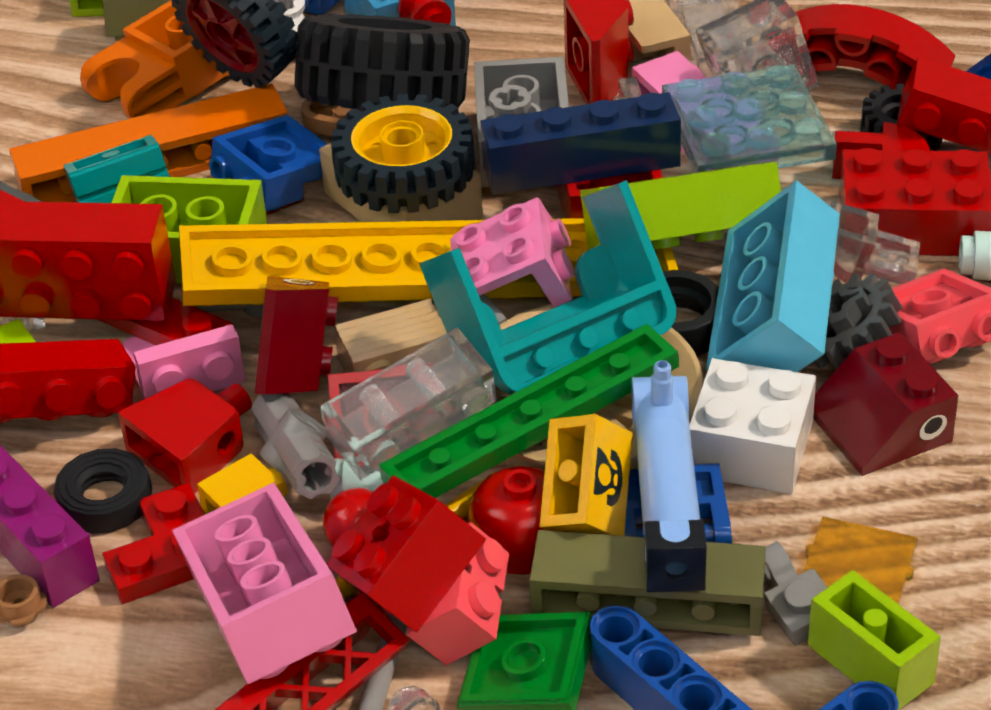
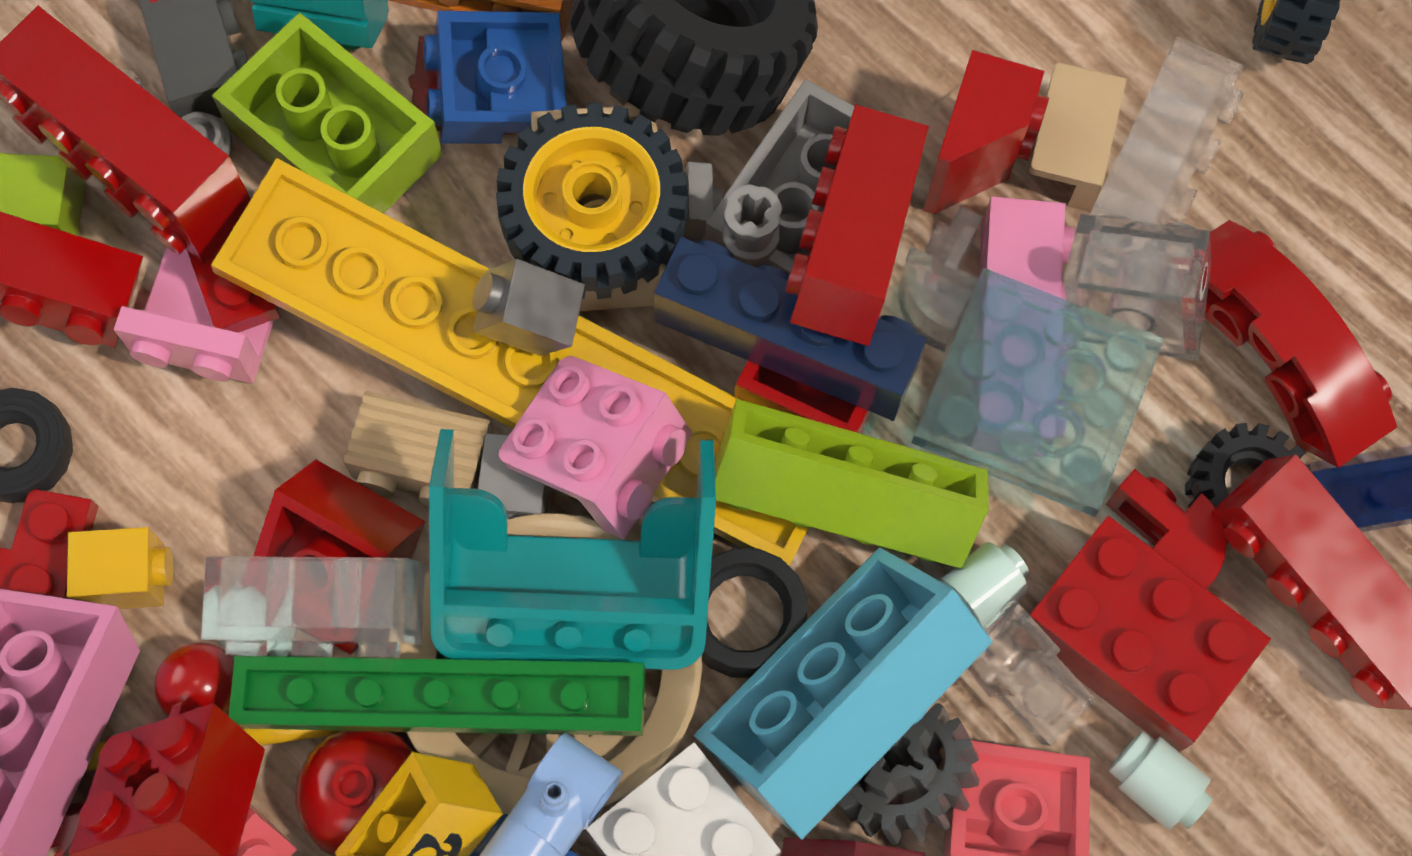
camera: 30 degrees right, 30 degrees up
(186, 430) = (134, 429): red torso -> none
(293, 335) = (290, 394): dark red slope -> none
(295, 444) = (210, 526): light grey piece -> none
(412, 208) = (527, 307): none -> flat silver brick
(581, 65) = (860, 226): none -> red brick

